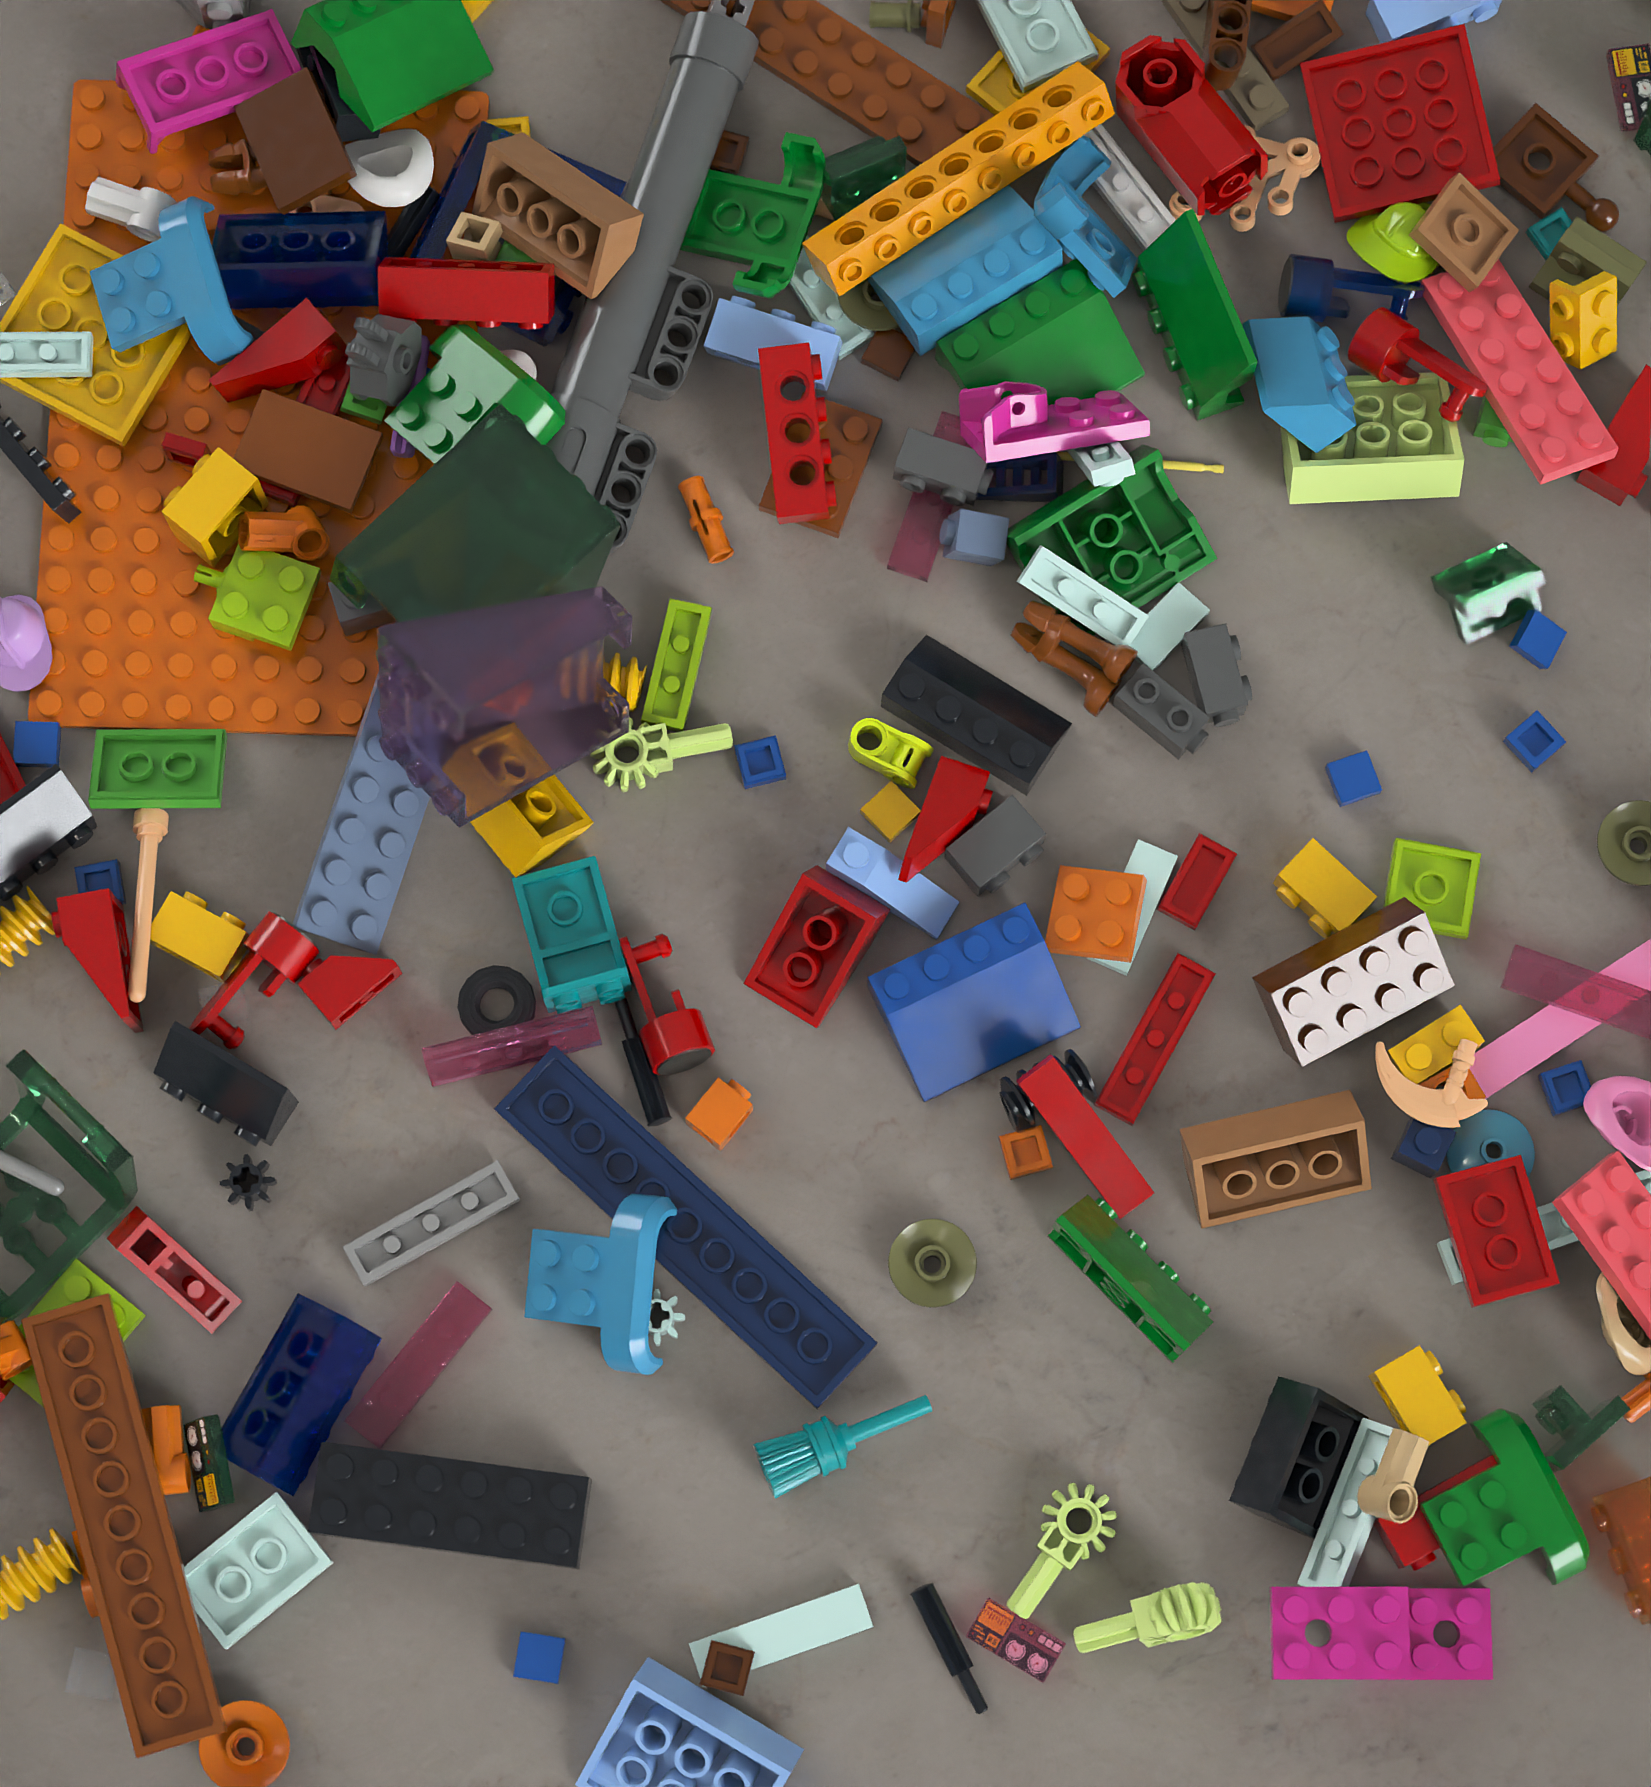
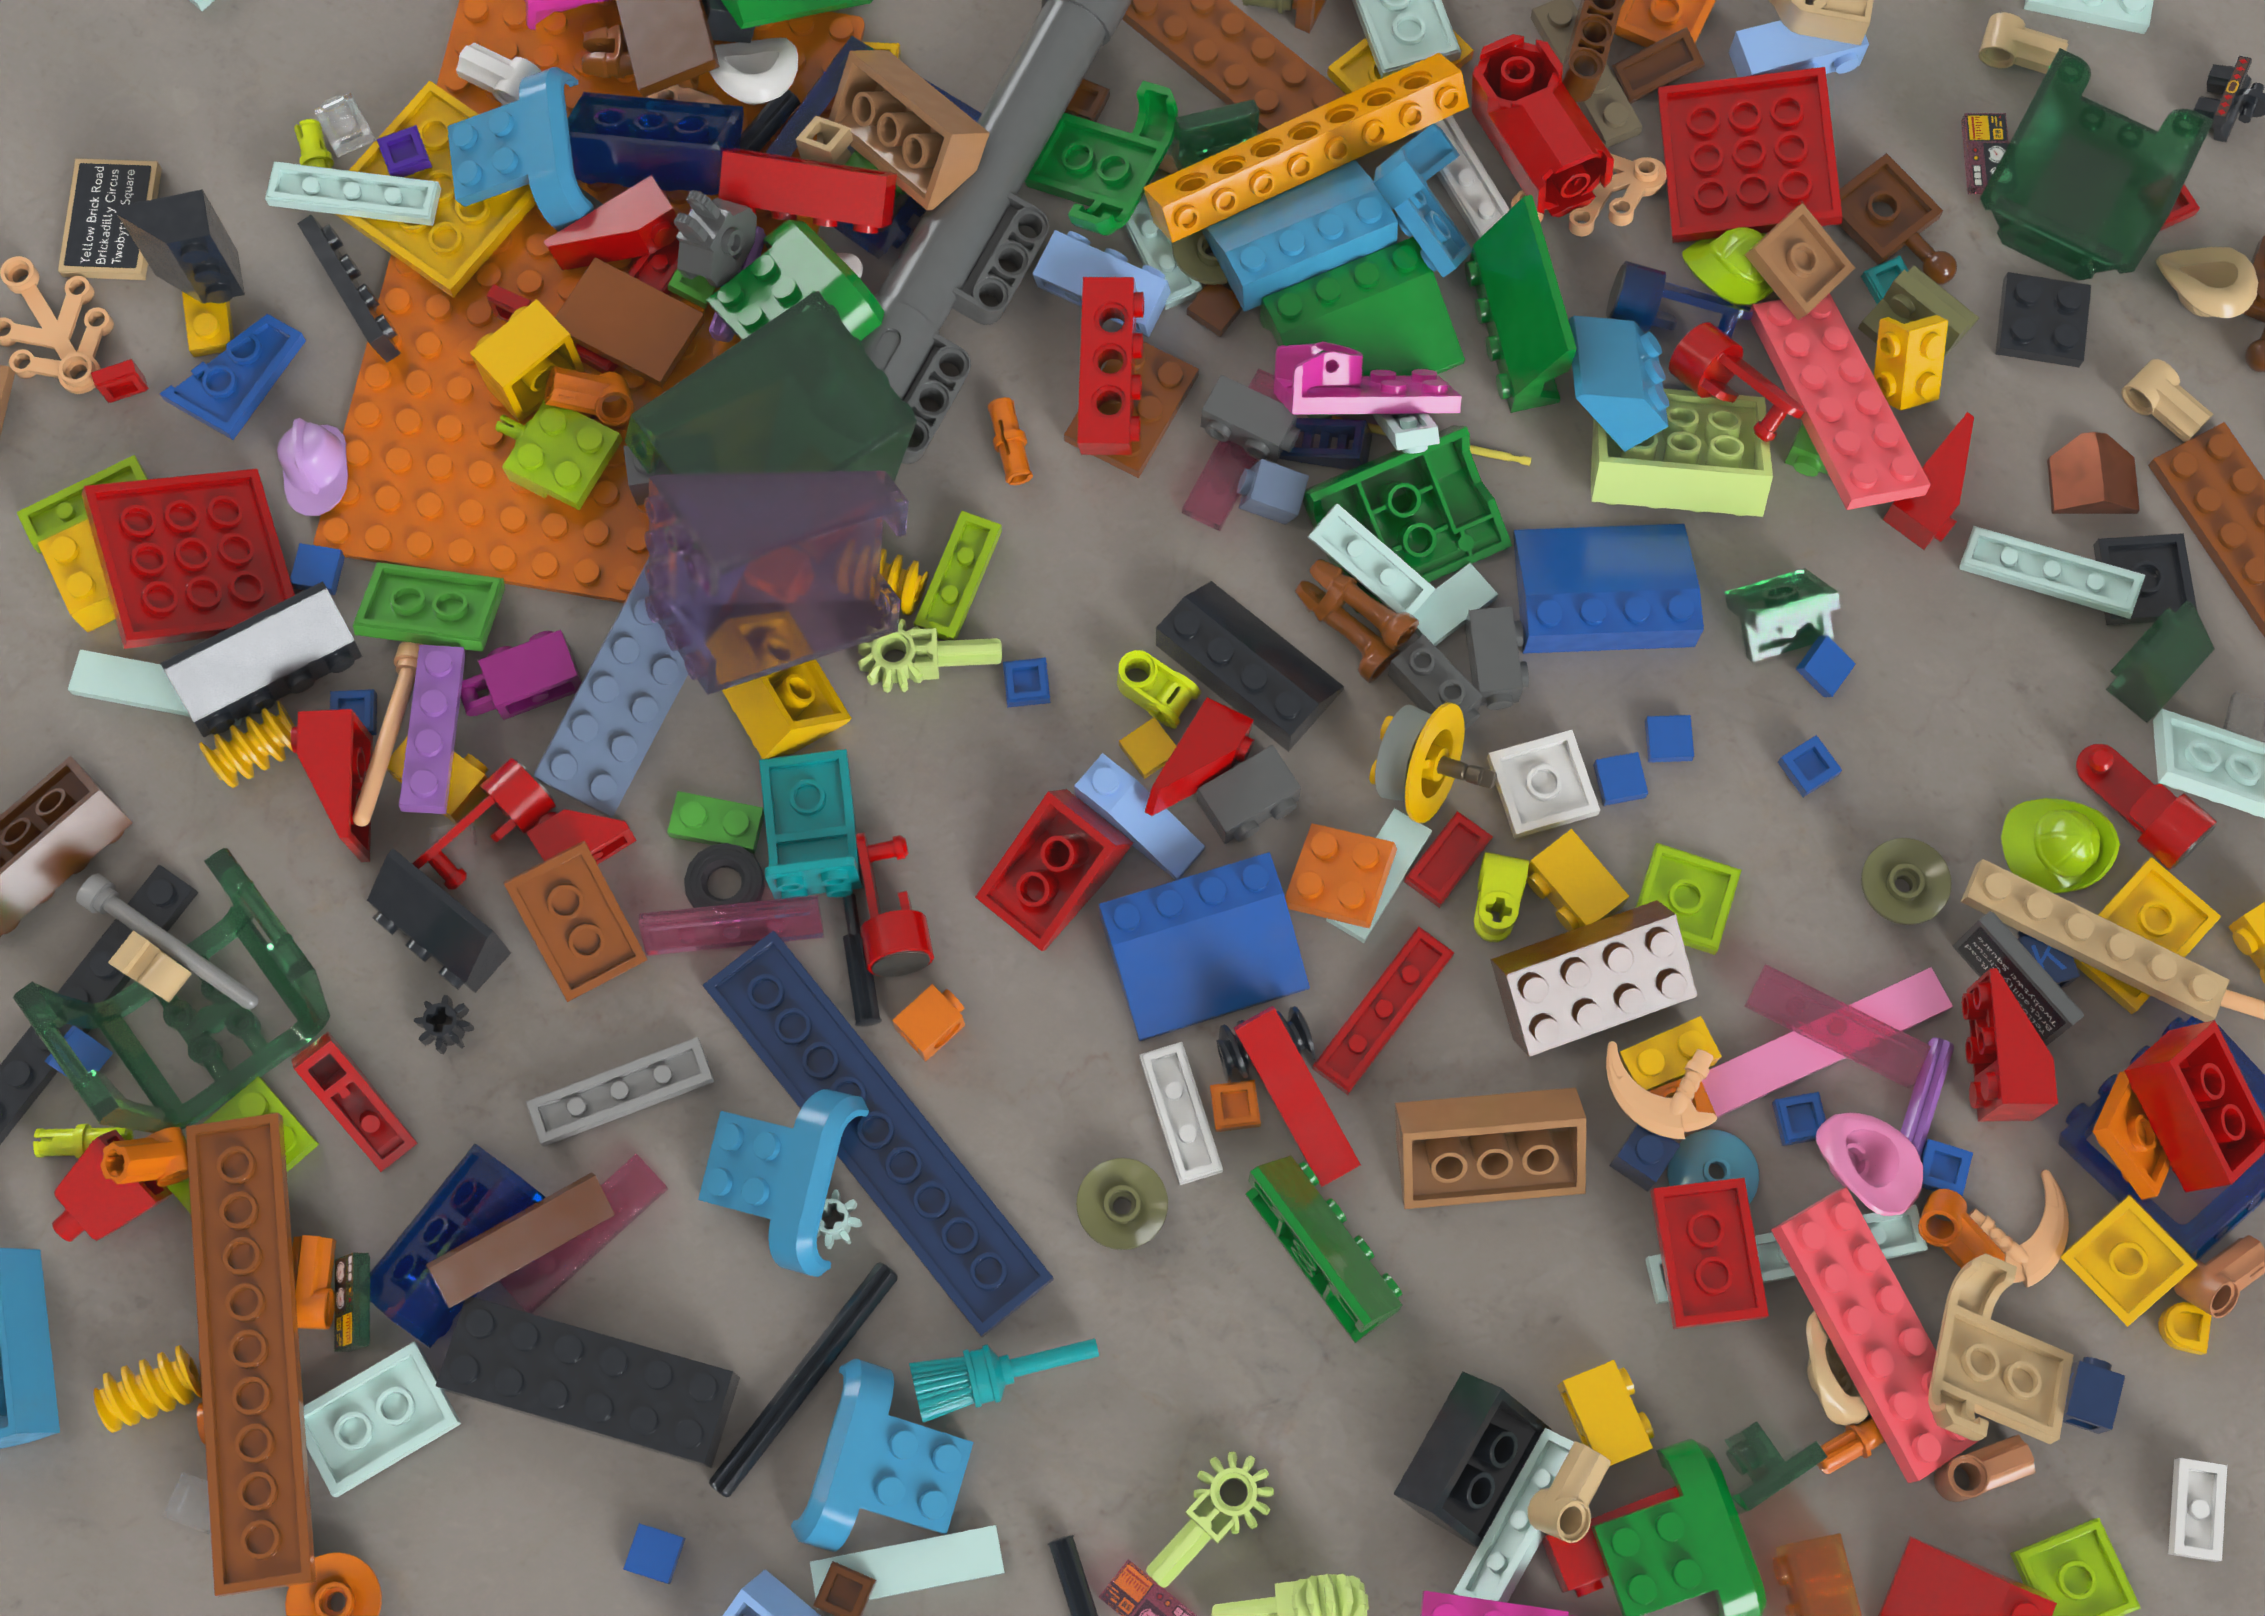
camera: 10 degrees right, 5 degrees down
(50, 304) = (404, 152): none -> dark purple tile
(187, 894) = (432, 729): none -> medium lavender plate
(263, 826) = (523, 677): none -> magenta brick
(360, 1064) = (575, 921): none -> dark orange plate
(364, 1381) = (520, 1240): none -> reddish brown tile
(477, 944) = (715, 821): none -> bright green plate
(653, 1473) = (803, 1380): none -> black axle
(741, 1543) = (880, 1465): none -> dark azure piece
(974, 1167) = (1180, 1113): none -> white tile
(1160, 788) = (1423, 758): none -> piece
(1252, 905) = (1500, 890): none -> neon yellow piece
(1279, 795) = (1543, 784): none -> white plate
(1315, 588) = (1607, 588): none -> blue slope
(1395, 732) = (1669, 738): none -> blue tile

